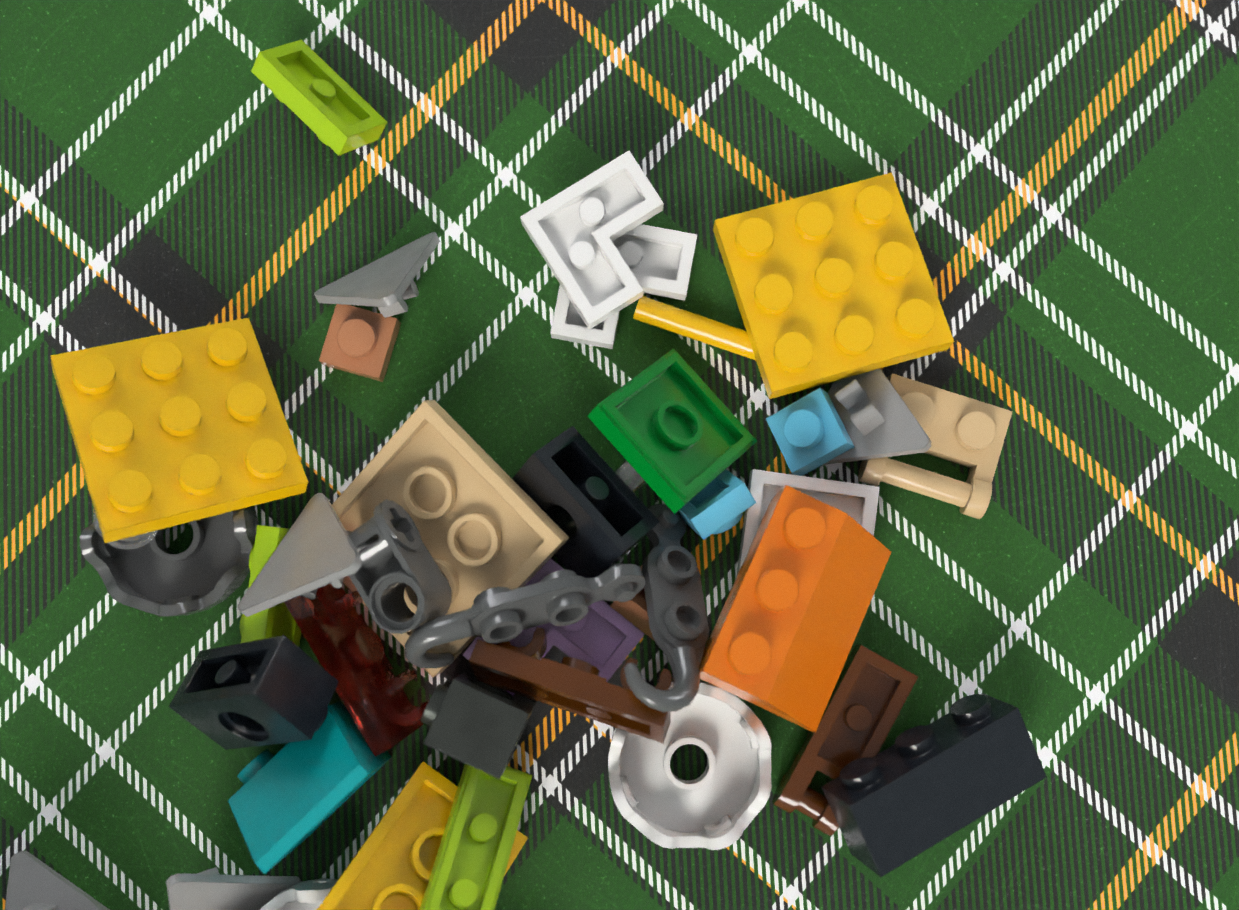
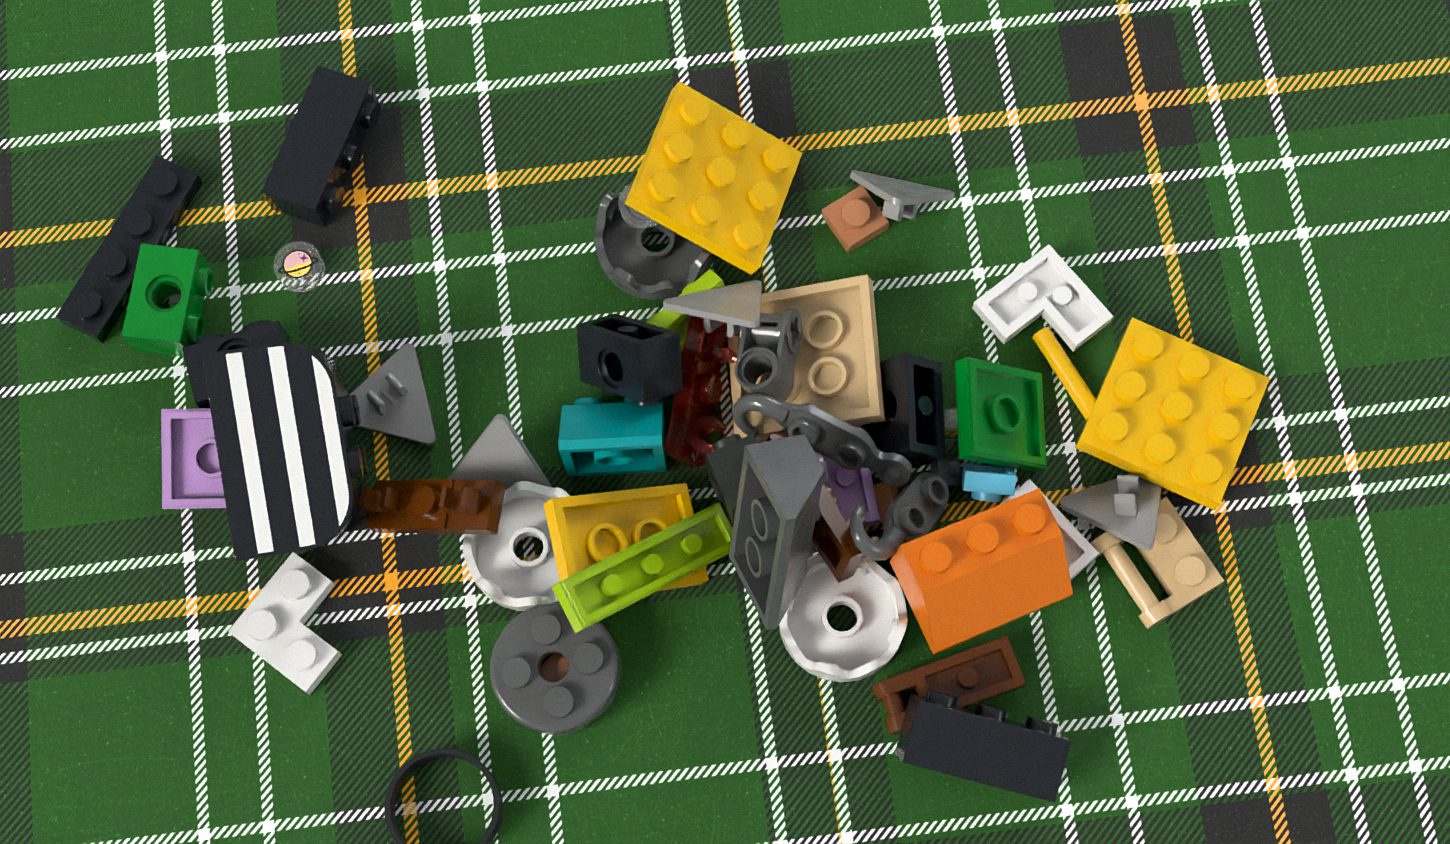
camera: 50 degrees right, 10 degrees down
(319, 96) = (952, 61): lime plate -> none
(558, 755) = (776, 521): none -> dark grey slope
(577, 236) = (1042, 253): white plate -> none
(809, 432) = (1083, 487): medium azure plate -> none

